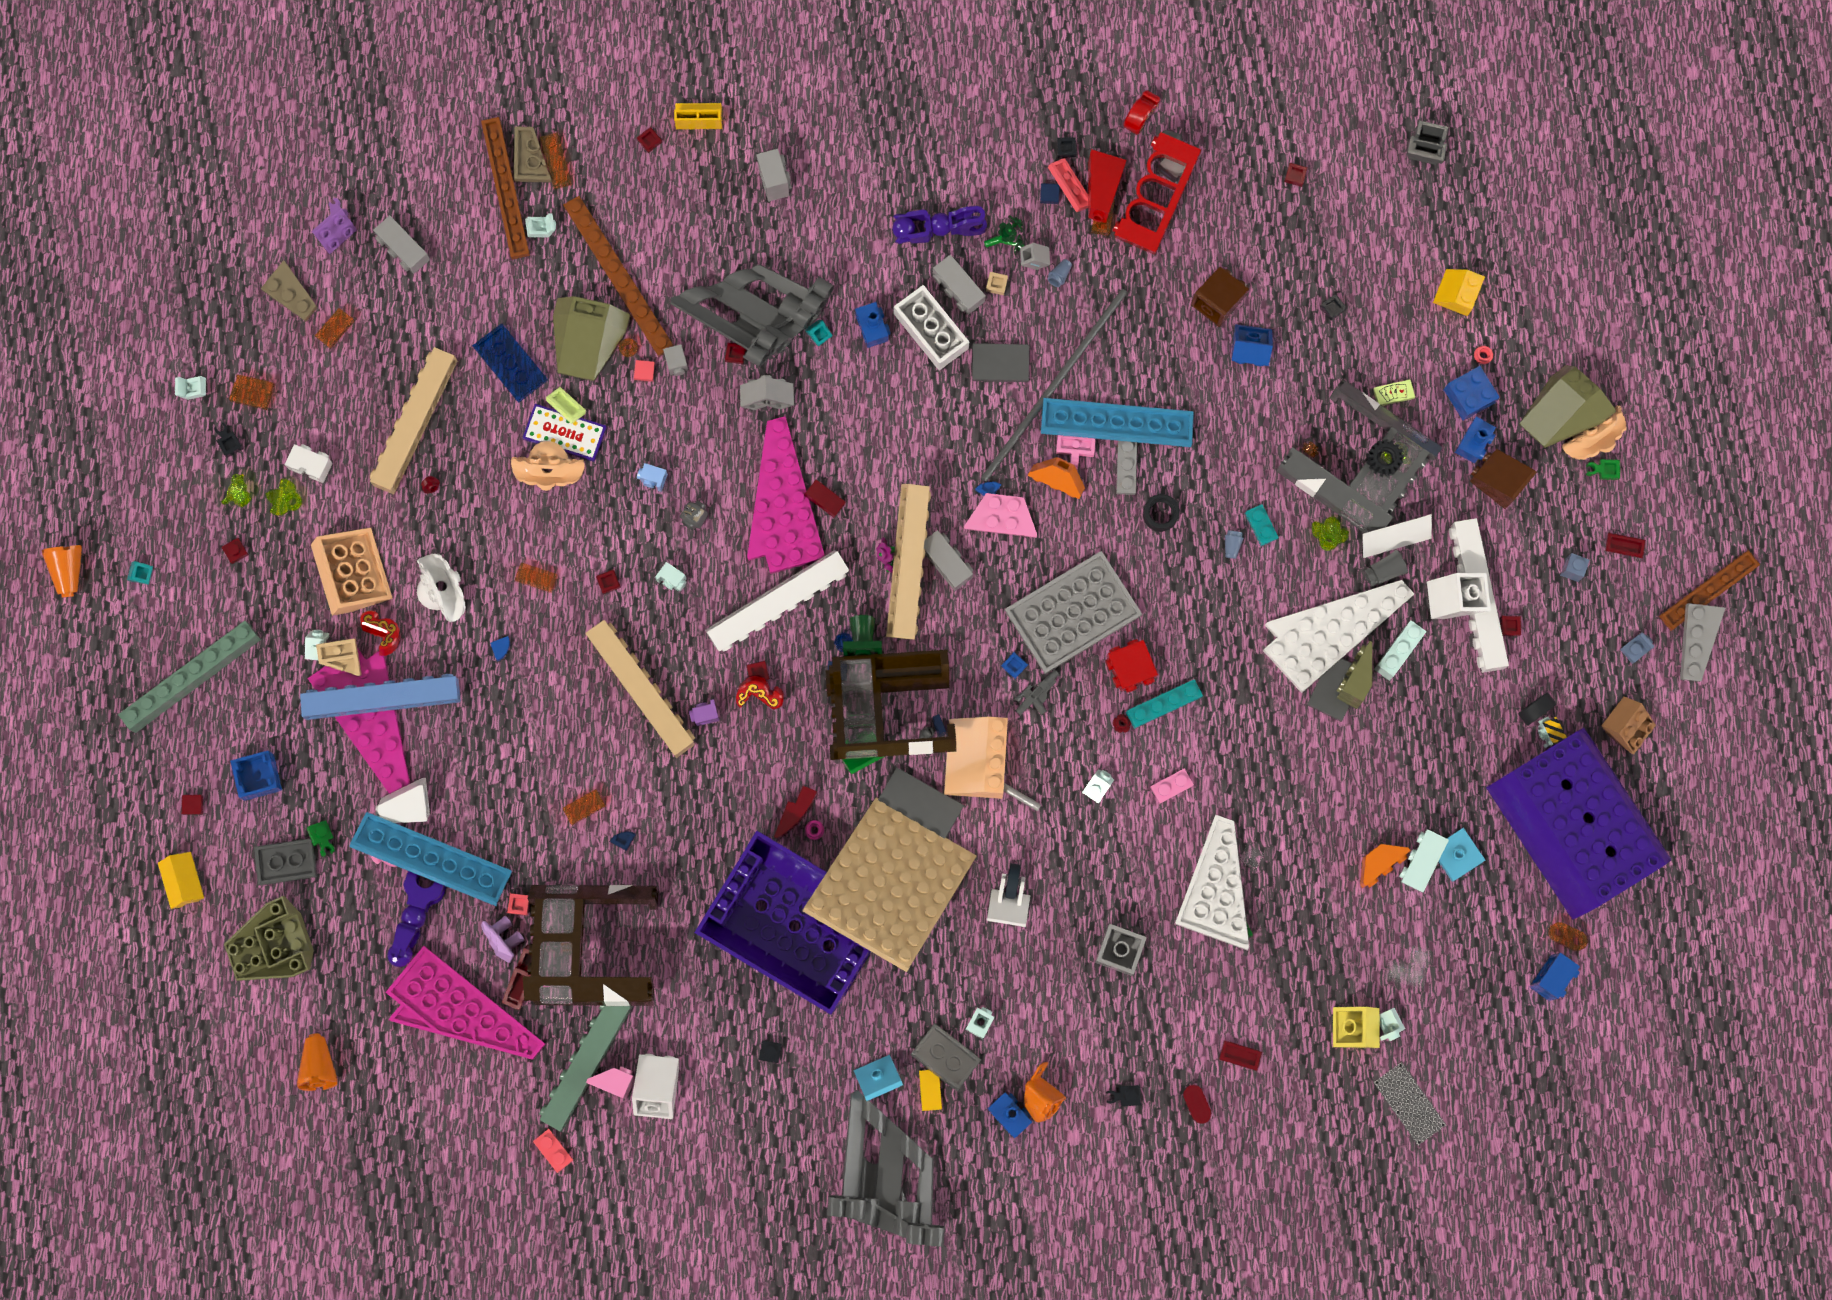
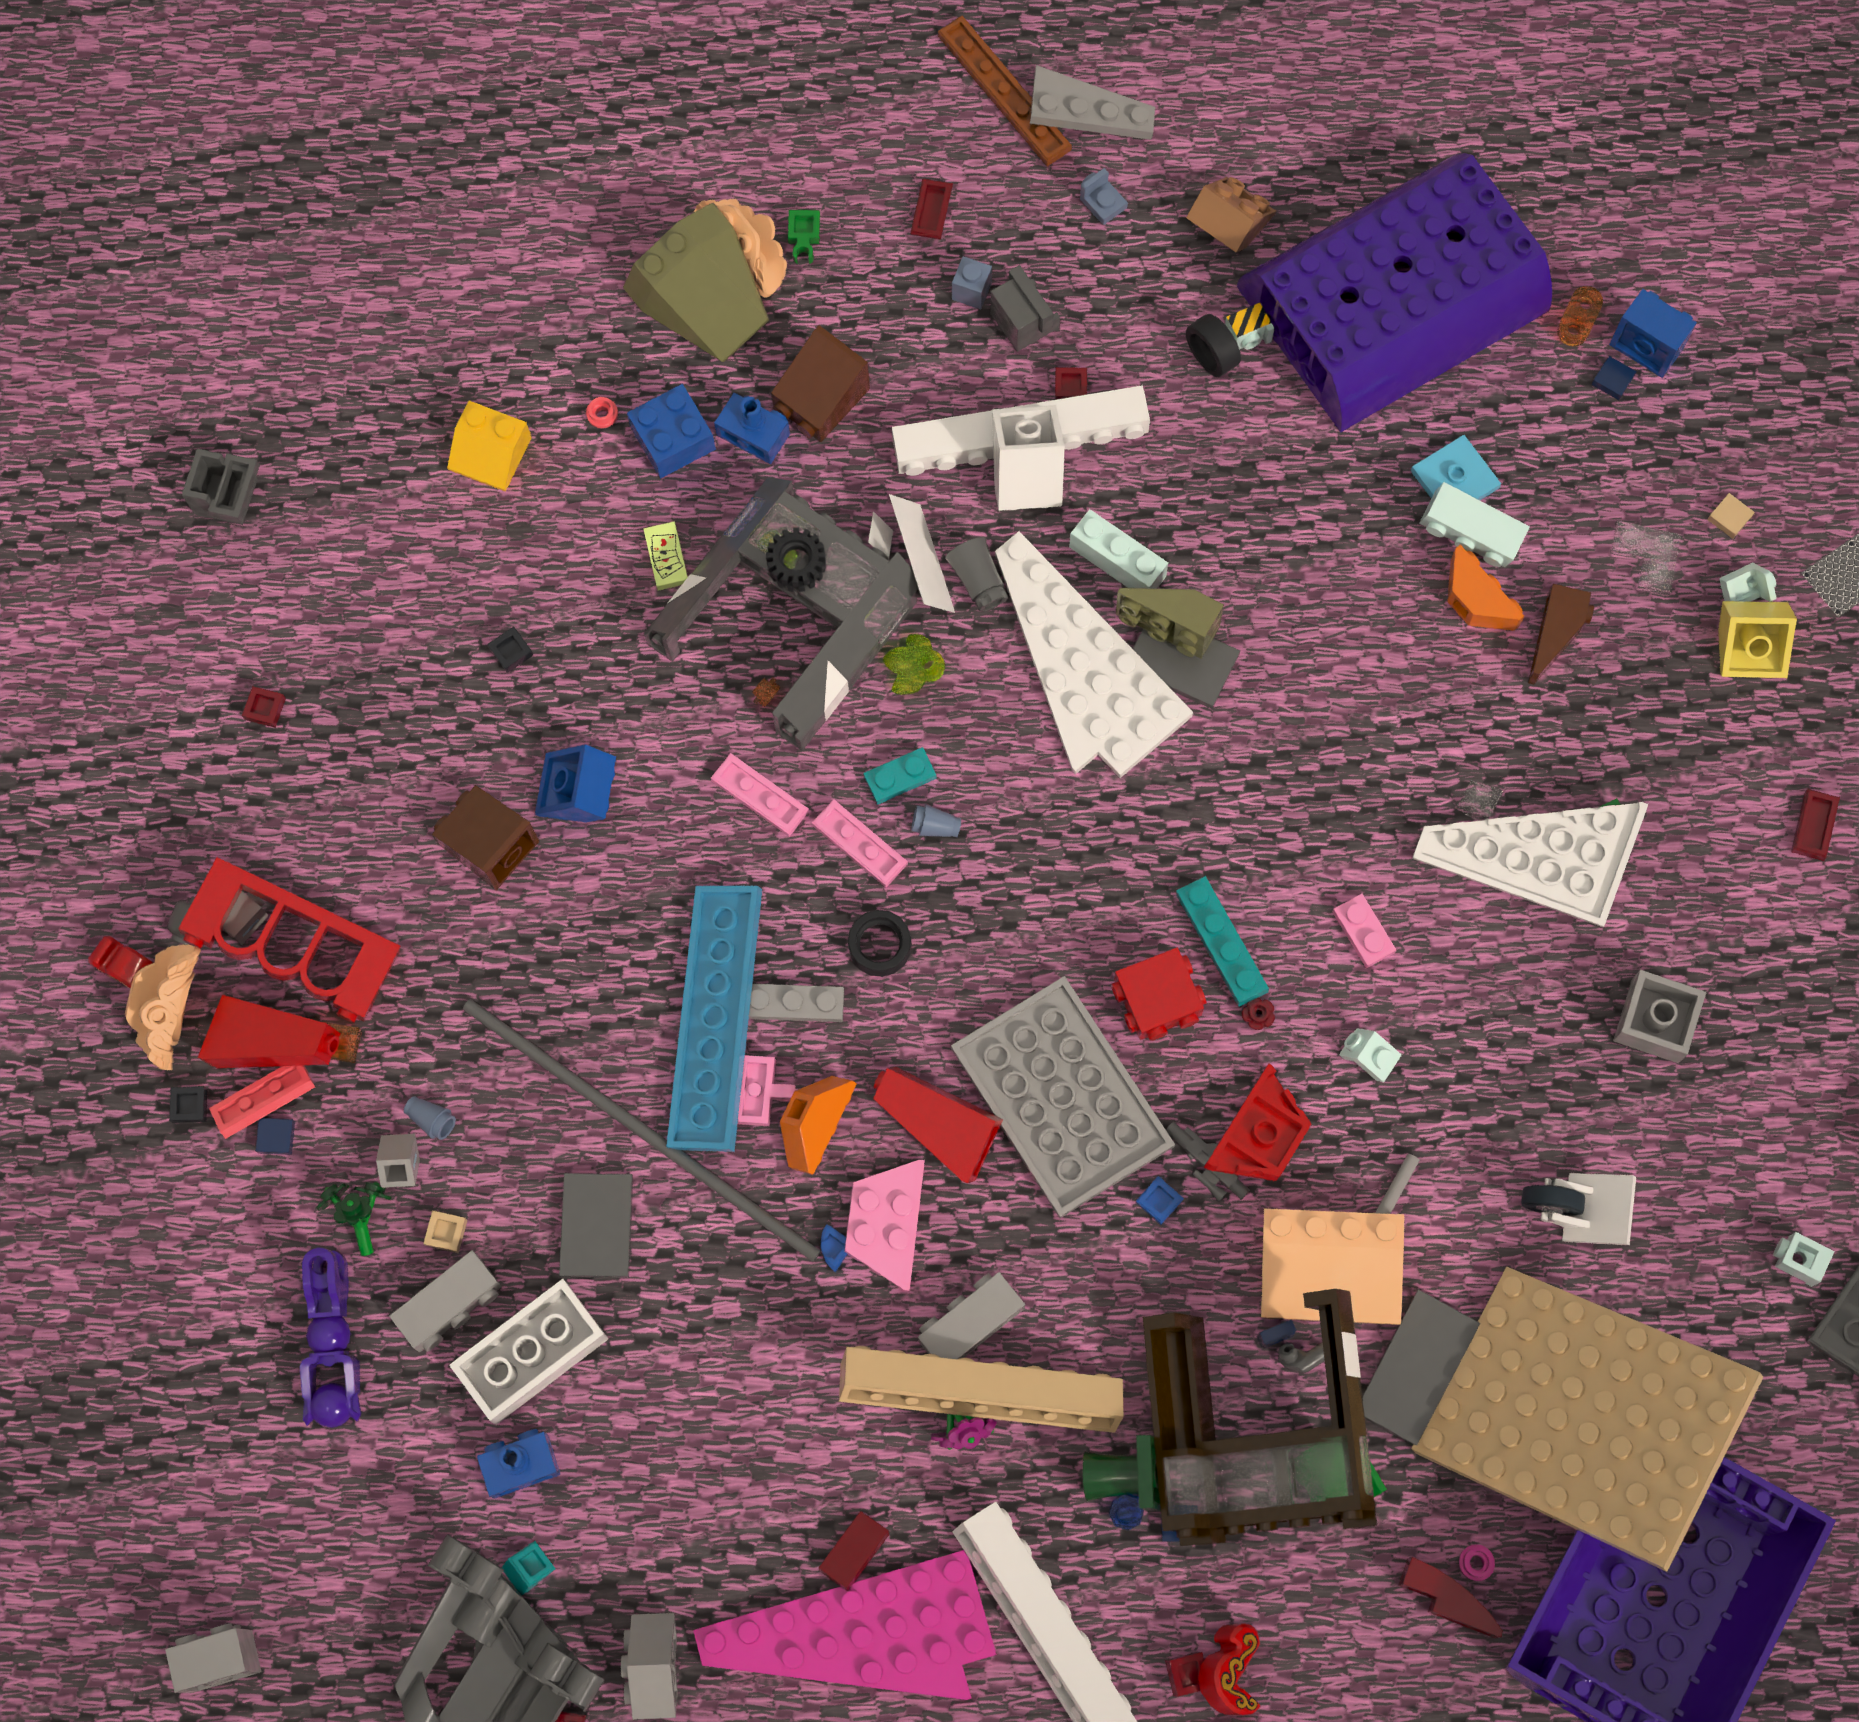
camera: 85 degrees left, 5 degrees down
(1052, 721) = (1262, 1132): none -> red wing
(1058, 543) = (939, 1120): none -> red slope
(1120, 127) = (159, 1002): none -> light nougat piece
(1220, 502) = (859, 843): none -> bright pink tile
(1248, 447) = (759, 794): none -> bright pink tile
(1361, 910) = (1561, 622): none -> reddish brown slope
(1407, 512) = (880, 535): none -> white sticker
(1437, 1021) = (1731, 516): none -> tan tile
(1527, 955) = (1614, 378): none -> dark blue tile
(1557, 597) = (1022, 310): none -> dark grey plate

